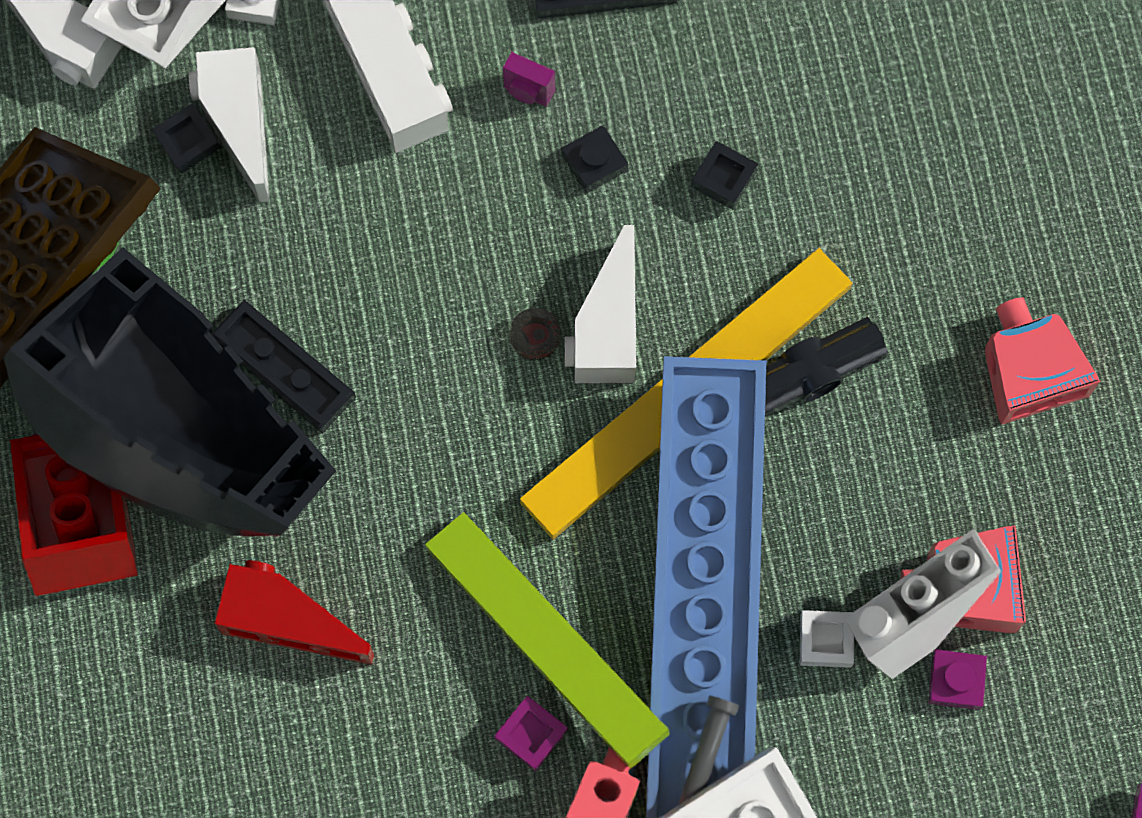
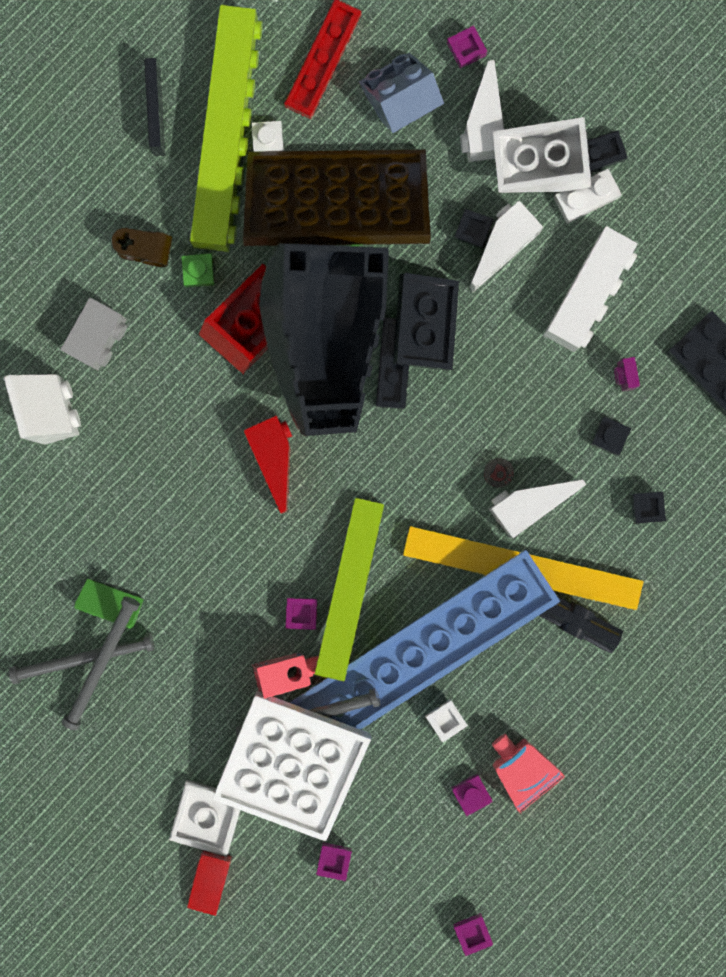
camera: 55 degrees right, 15 degrees up
(260, 282) = (425, 322): none -> black plate
(923, 606) = (492, 761): white slope -> none
(1035, 364) = (658, 728): coral torso -> none

